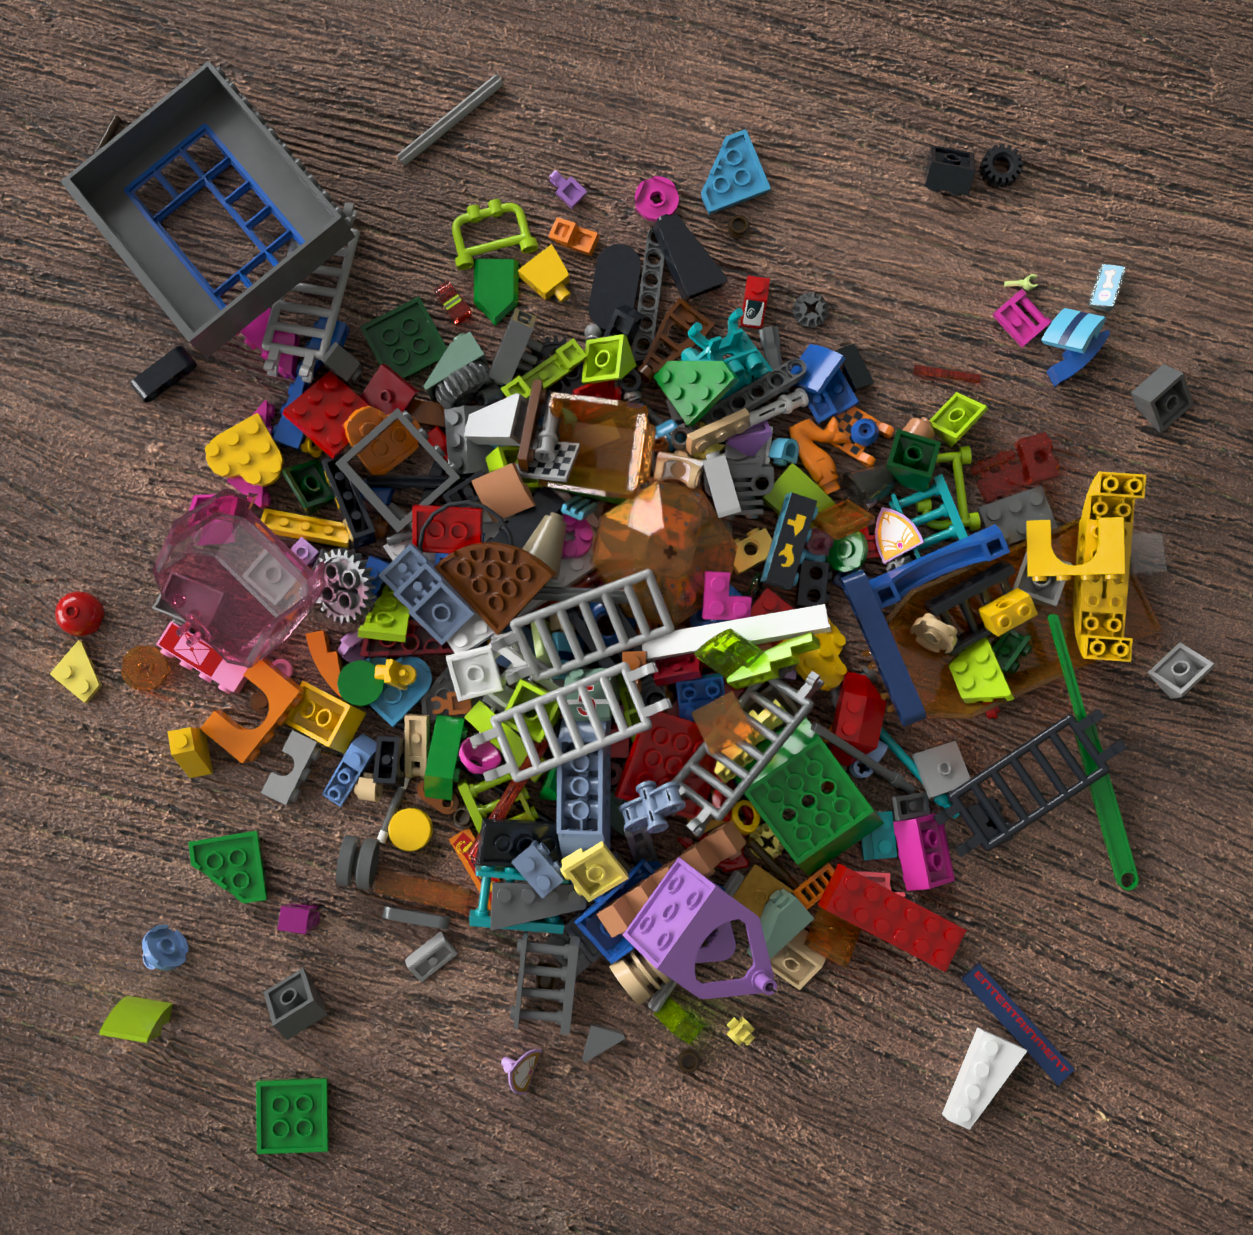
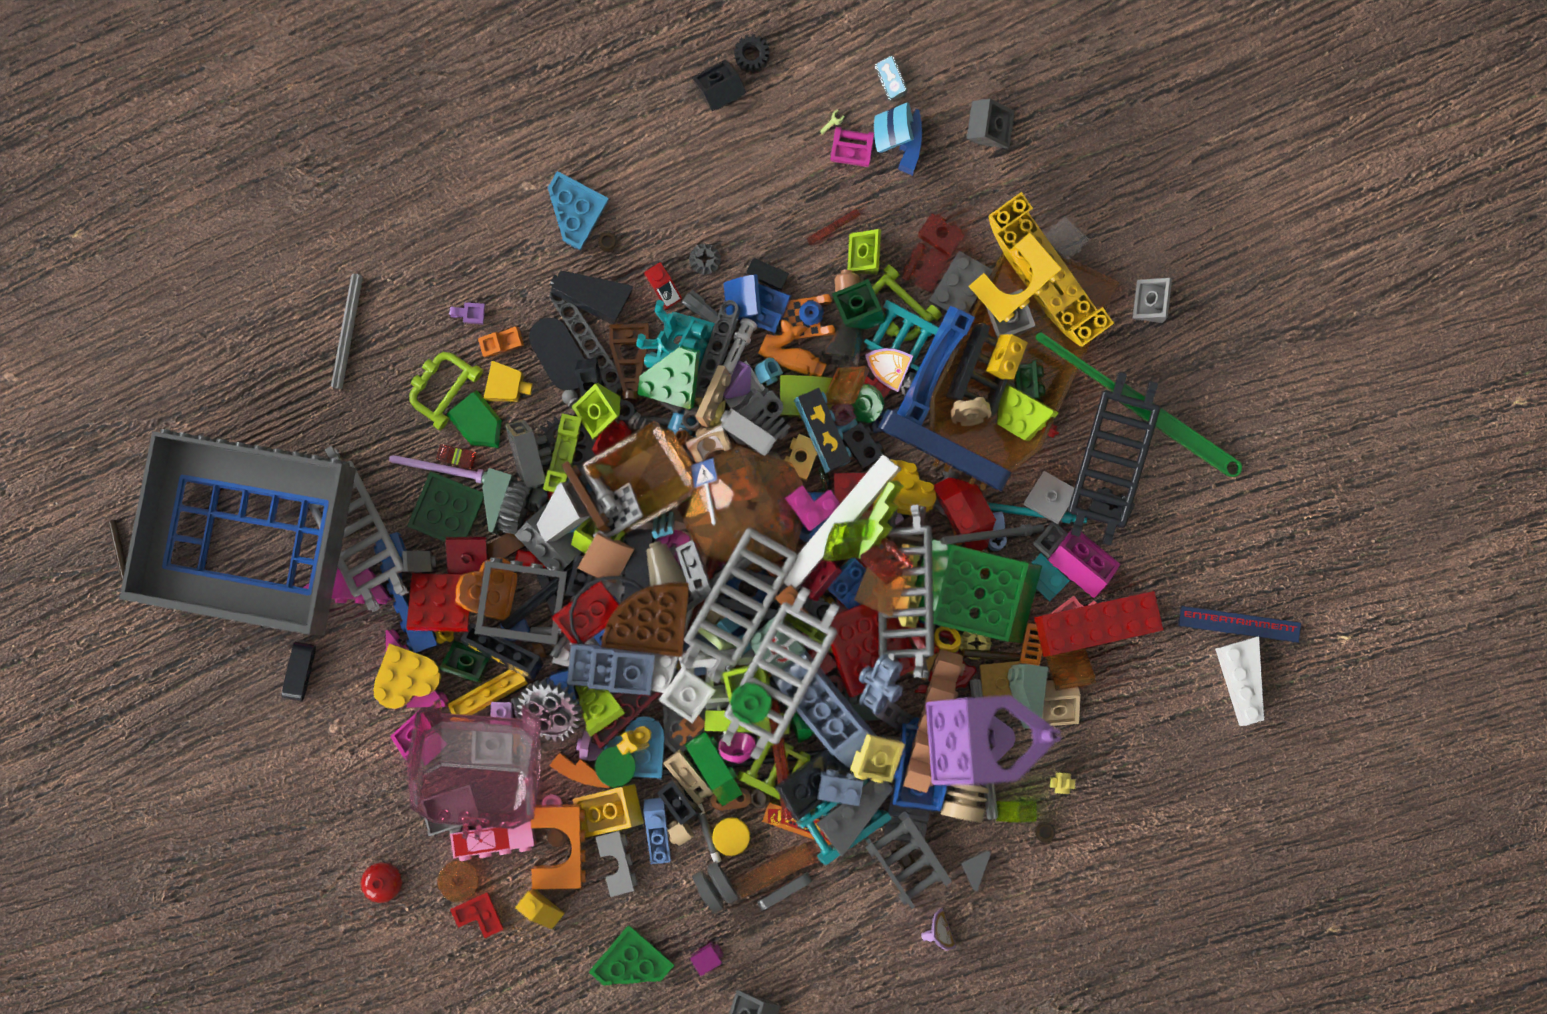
camera: 35 degrees left, 0 degrees up
(78, 673) = (414, 923): light yellow wing -> none
(143, 710) = (479, 909): none -> red plate
(425, 295) = (438, 467): none -> lavender bar
(430, 957) = (816, 909): light grey slope -> none
(522, 726) = (750, 703): none -> green tile
(572, 566) = (694, 569): none -> plate
(650, 188) = (527, 263): dark pink plate -> none
(650, 490) = (703, 474): none -> piece
(742, 705) = (882, 565): none -> clear red plate

